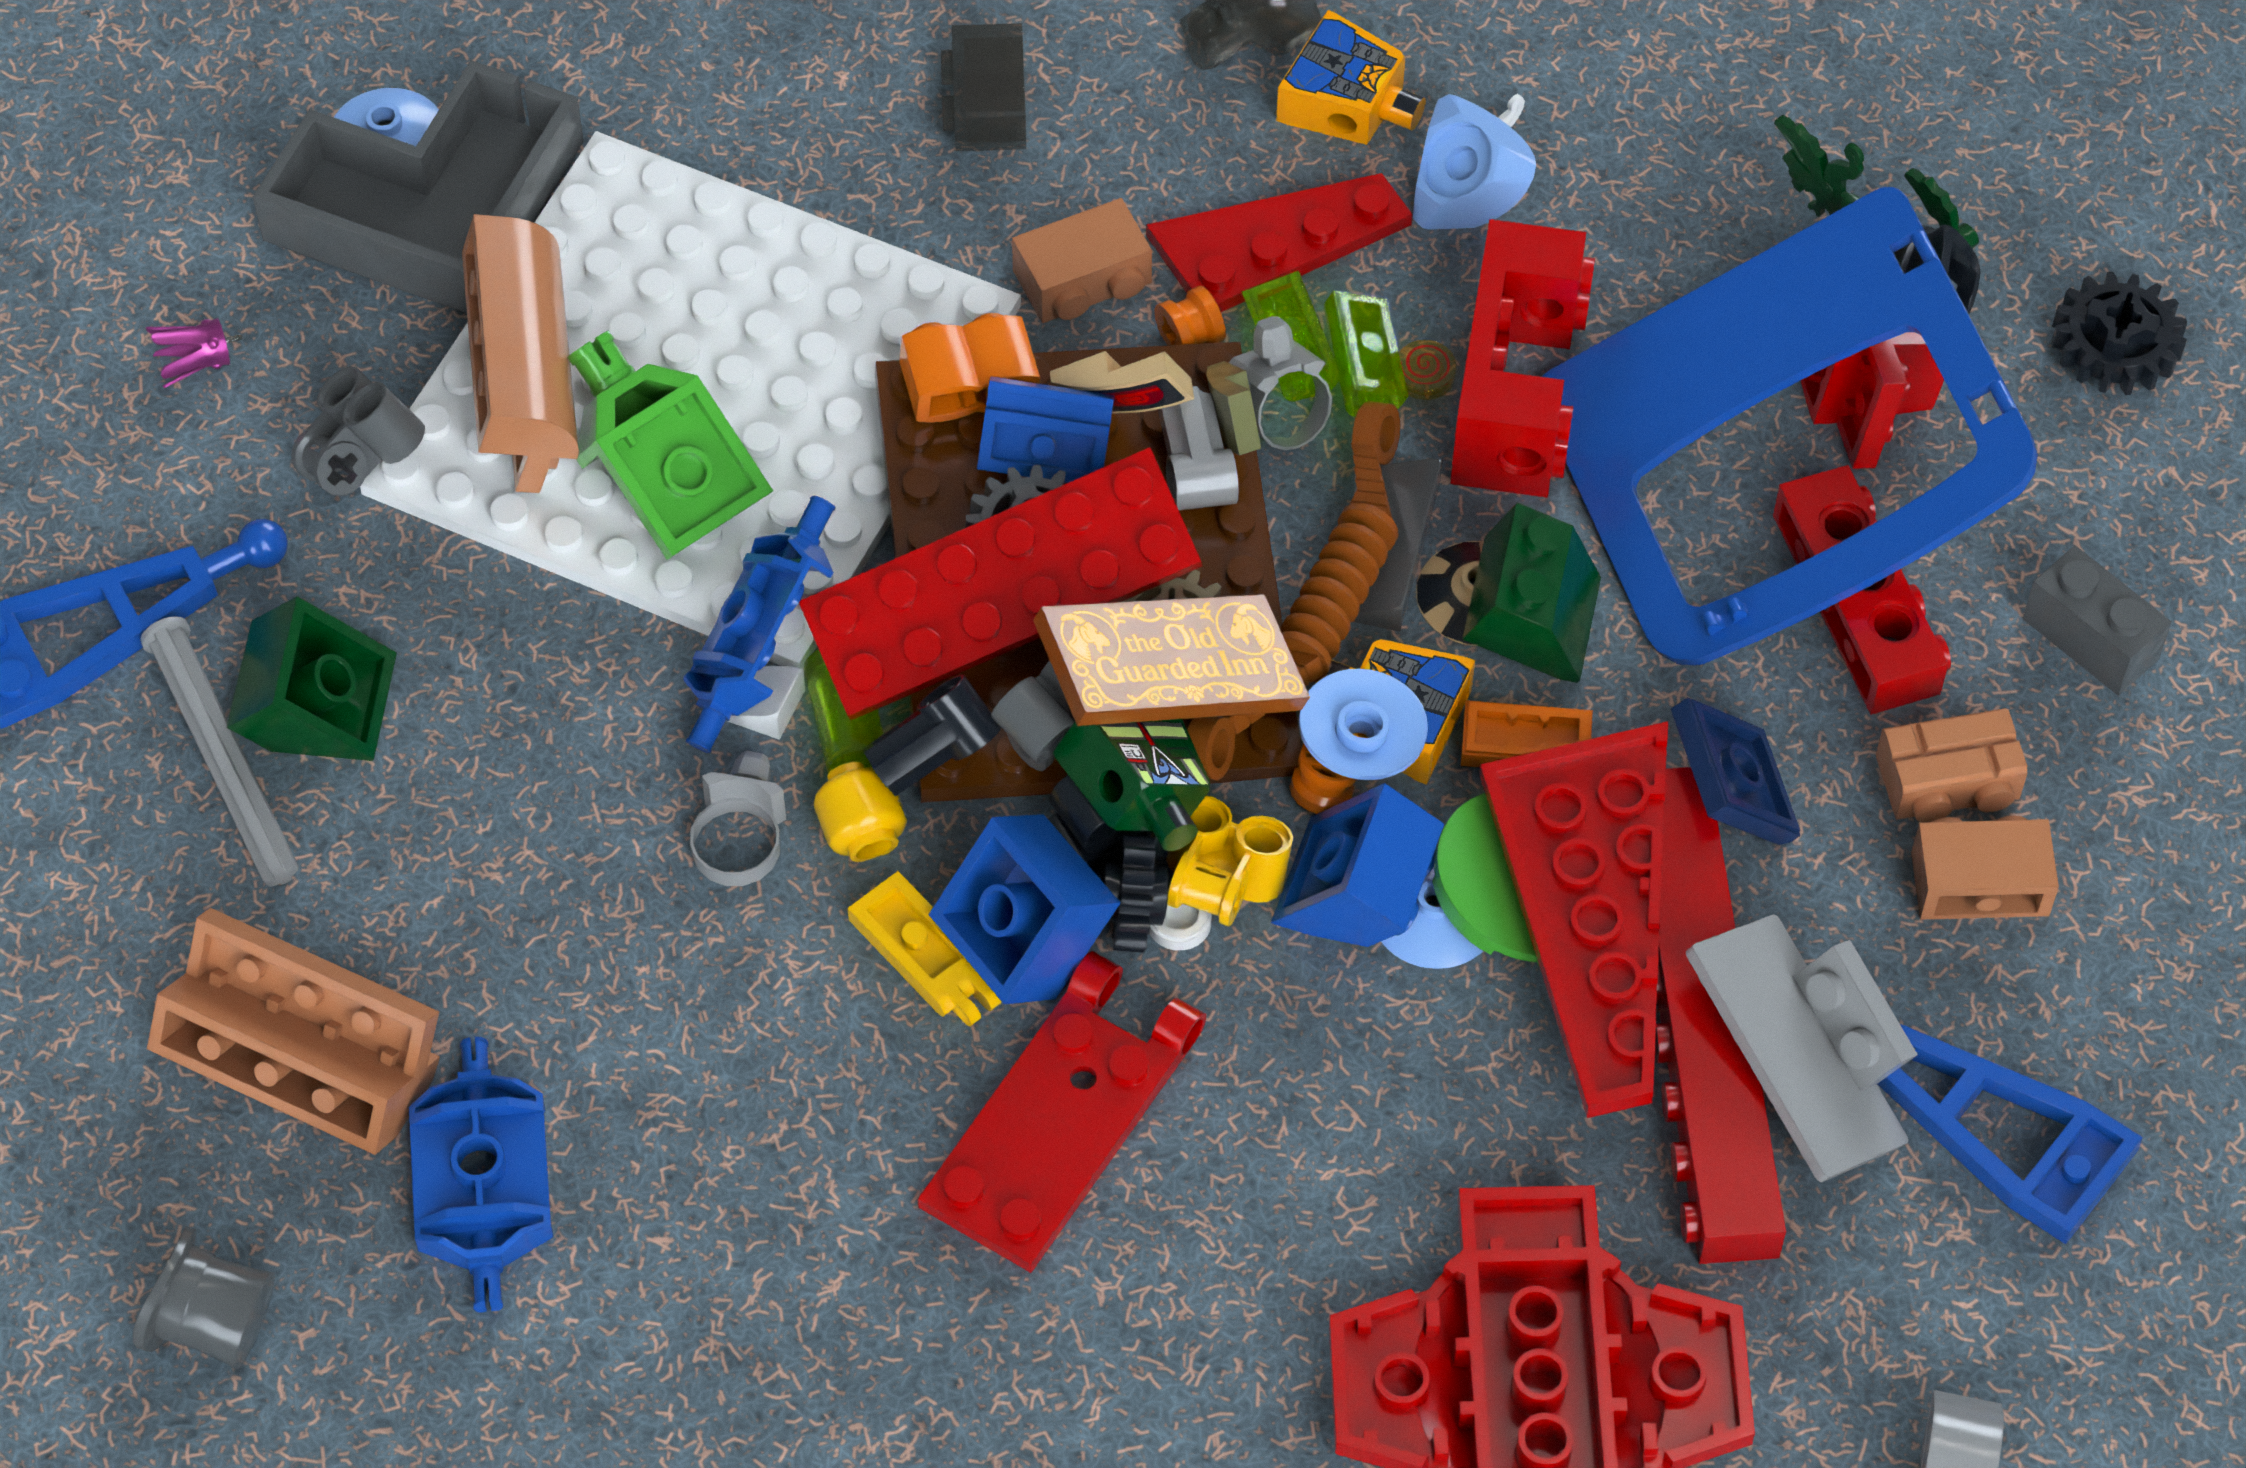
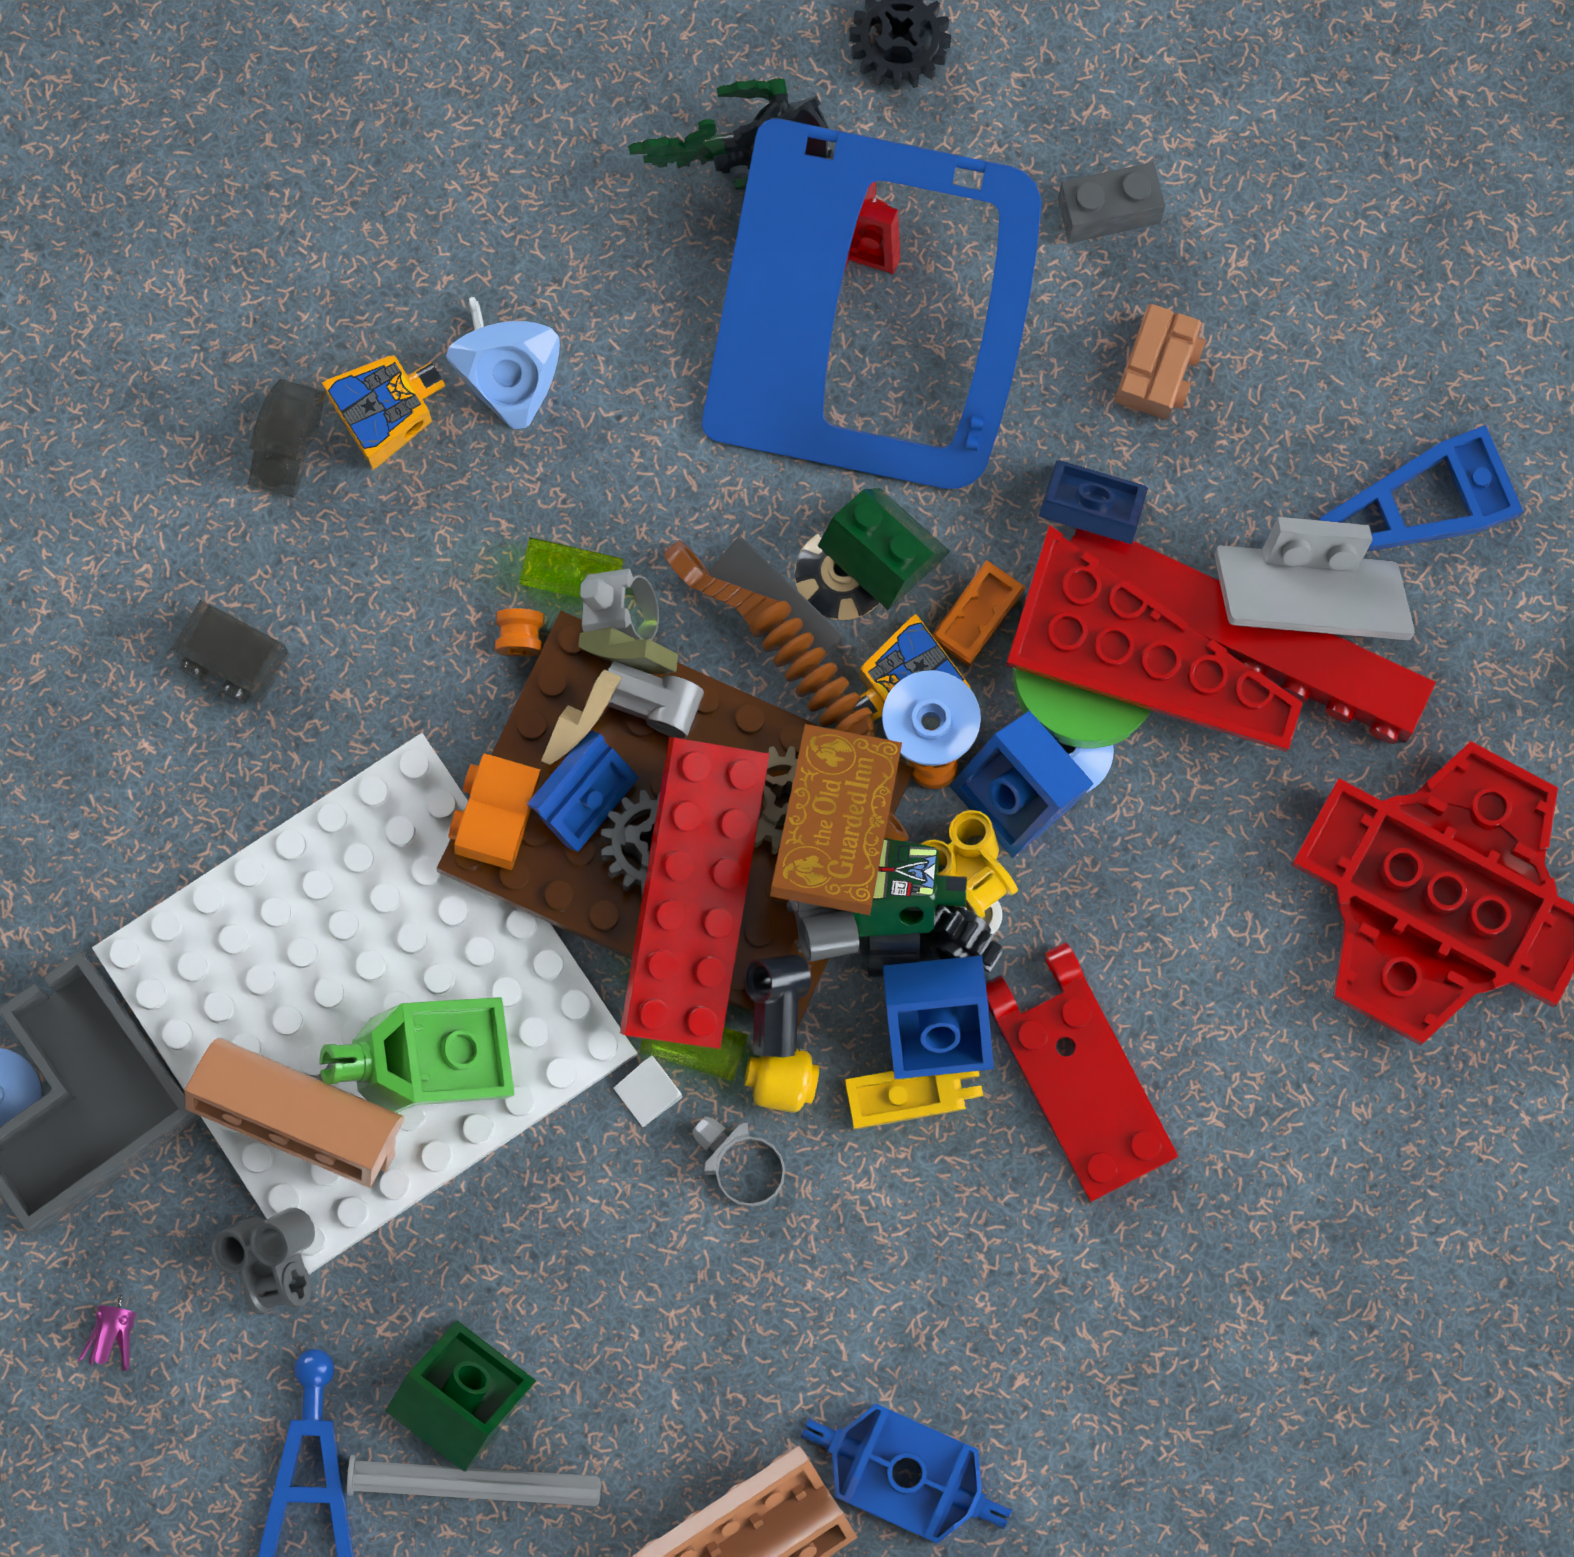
camera: 60 degrees left, 20 degrees up
(750, 619) = (590, 1036): blue plate -> none
(1082, 261) = (424, 675): nougat brick -> none
(1277, 235) = (476, 541): red wing -> none
(1364, 350) = (615, 531): clear neon green brick -> none
(1427, 369) = (647, 499): clear yellow tile -> none
(1509, 423) = (637, 407): red plate -> none
(1885, 671) = (925, 334): red brick -> none
(1984, 868) = (1245, 392): nougat brick -> none

